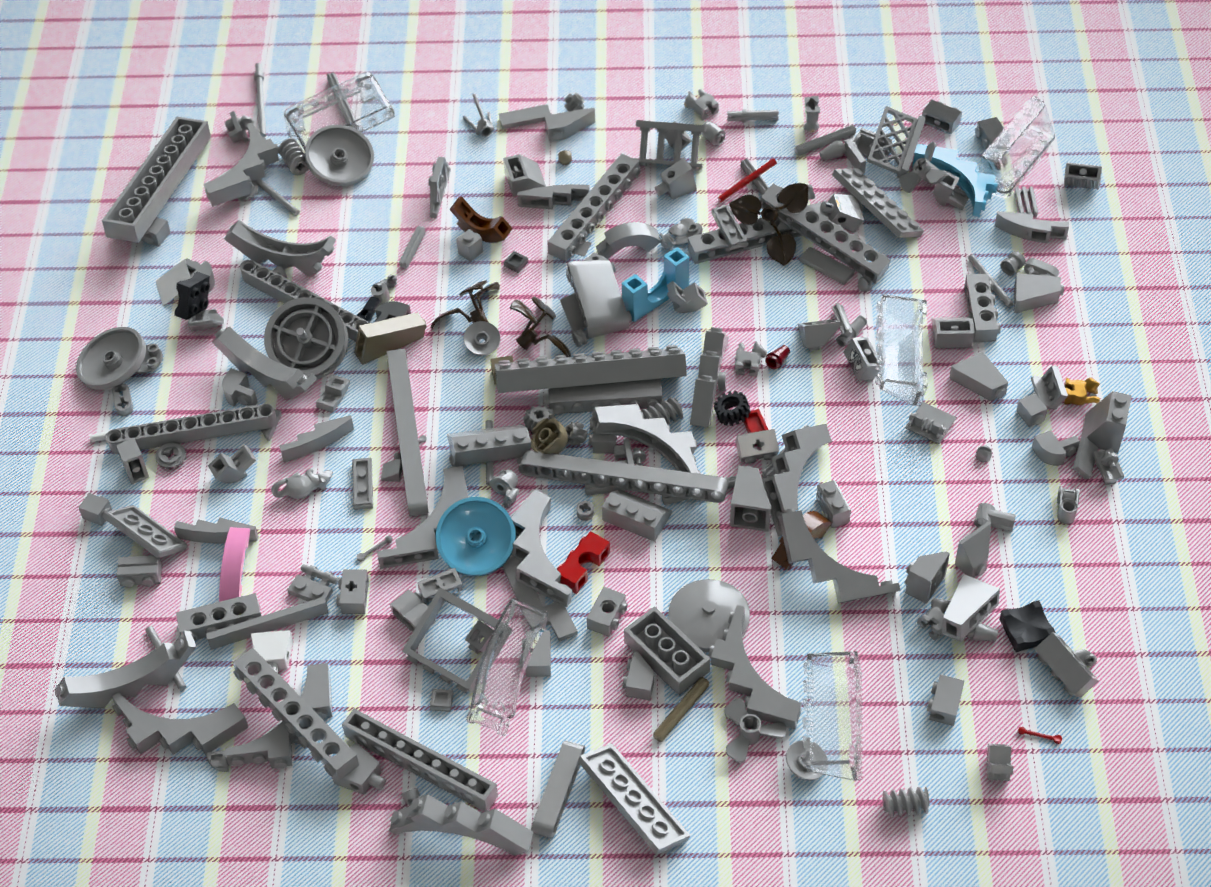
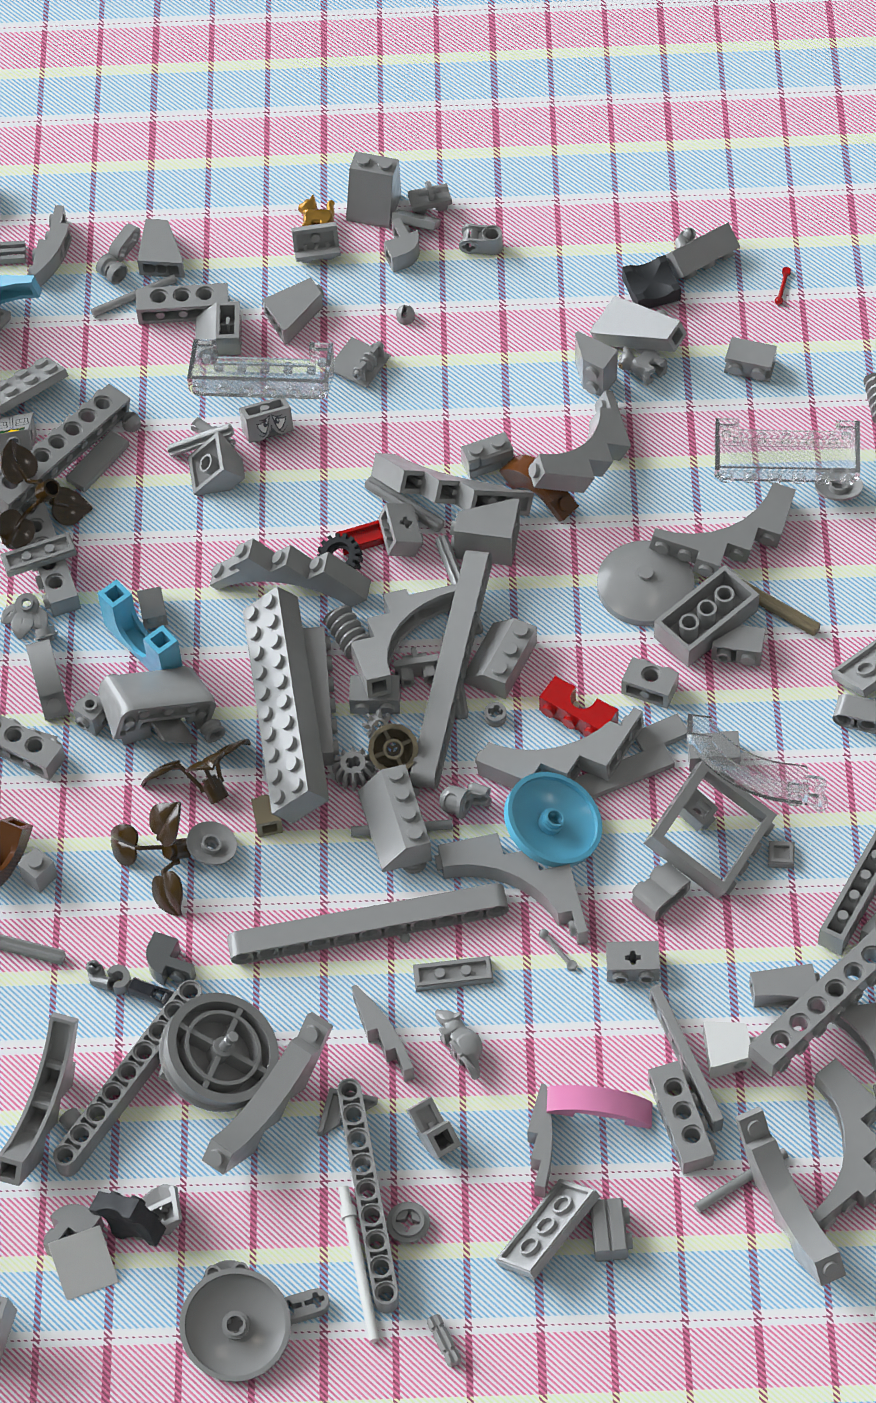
camera: 90 degrees left, 5 degrees up
(80, 476) = (444, 1340): none -> light grey axle
(94, 508) = (506, 1304): light grey brick -> none
(132, 461) = (430, 1259): light grey brick -> none
(236, 389) = (292, 1152): light grey brick -> none
(310, 590) = (628, 1016): light grey plate -> none
(334, 393) = (287, 1020): light grey slope -> none
(386, 335) = (206, 955): dark tan slope -> none
(392, 471) = (433, 938): light grey slope -> none
(446, 580) = (623, 861): light grey hinge -> none
(516, 262) = (65, 817): dark grey tile -> none
(737, 713) = (803, 538): light grey piece -> none
(749, 360) = (247, 531): light grey animal -> none
(777, 357) = (255, 512): dark red cone -> none
(974, 551) = (554, 321): light grey slope -> none
(997, 518) = (502, 309): light grey piece -> none
(999, 762) = (825, 317): light grey brick -> none
(1031, 410) = (345, 263): light grey brick -> none

